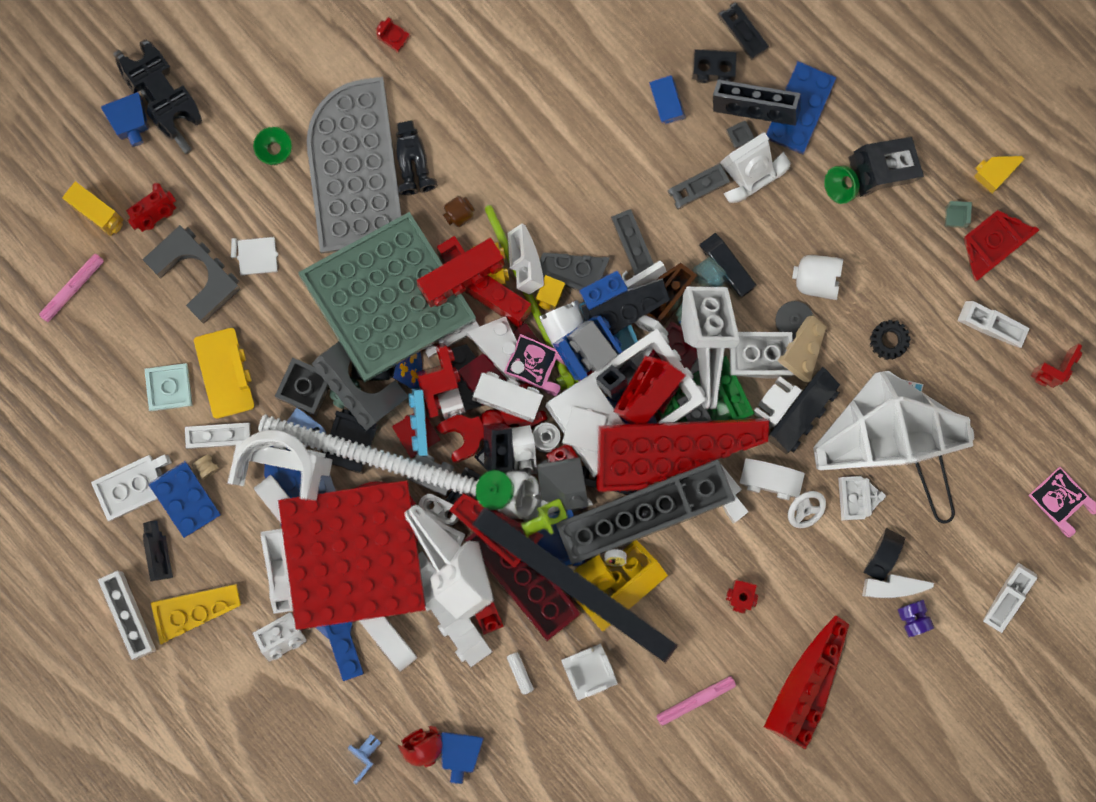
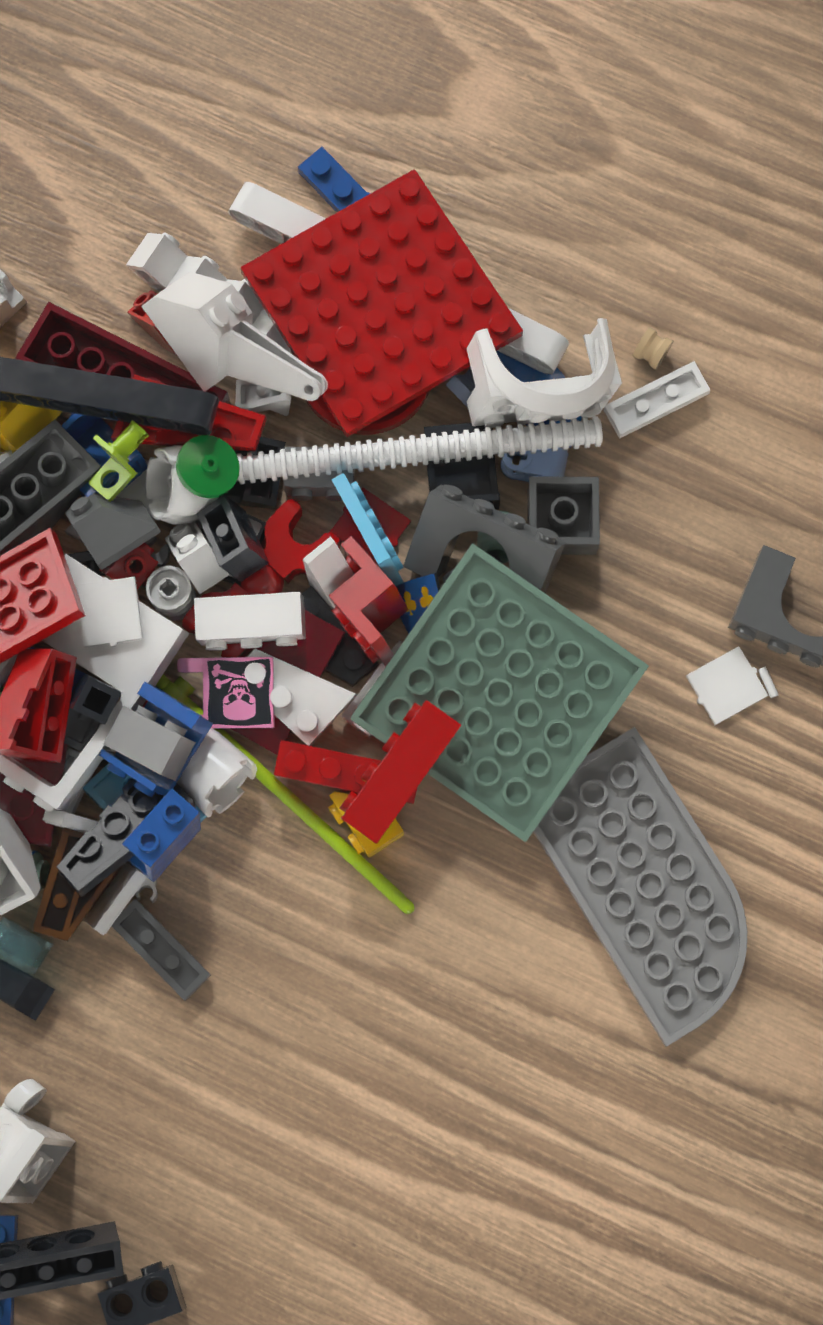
camera: 160 degrees right, 5 degrees down
(127, 615) = (663, 103): white brick -> none
(128, 486) = (742, 282): white tile -> none
(156, 552) = (664, 205): black hinge -> none
(168, 387) = (762, 440): light aqua tile -> none
(184, 499) = (661, 290): blue plate -> none
(185, 612) = (583, 148): yellow wing -> none
(224, 373) = (691, 492): yellow bracket -> none
(265, 139) = (797, 845): green piece -> none
(277, 570) = (487, 250): white arch -> none
(279, 637) = (441, 162): white bracket -> none
(363, 754) = (250, 62): light blue bracket -> none
(391, 34) = (684, 1125): red bracket -> none
(409, 148) = (571, 950): black piece -> none
(422, 747) = (173, 103): red cylinder -> none
(439, 511) = (286, 424): white plate -> none
(450, 249) = (432, 813): red panel -> none
(458, 211) = (451, 880): reddish brown head -> none
(459, 754) = (115, 119): blue torso -> none
(520, 673) = (76, 258): white axle -> none
(524, 260) = (316, 847): white slope -> none
(550, 293) = (256, 814): yellow brick -> none
(573, 270) = (234, 864): dark grey wing -> none
(667, 100) = (196, 1207): blue hinge -> none
(699, 185) = (90, 1086): dark grey plate -> none
(740, 134) = (56, 1201): dark grey plate -> none

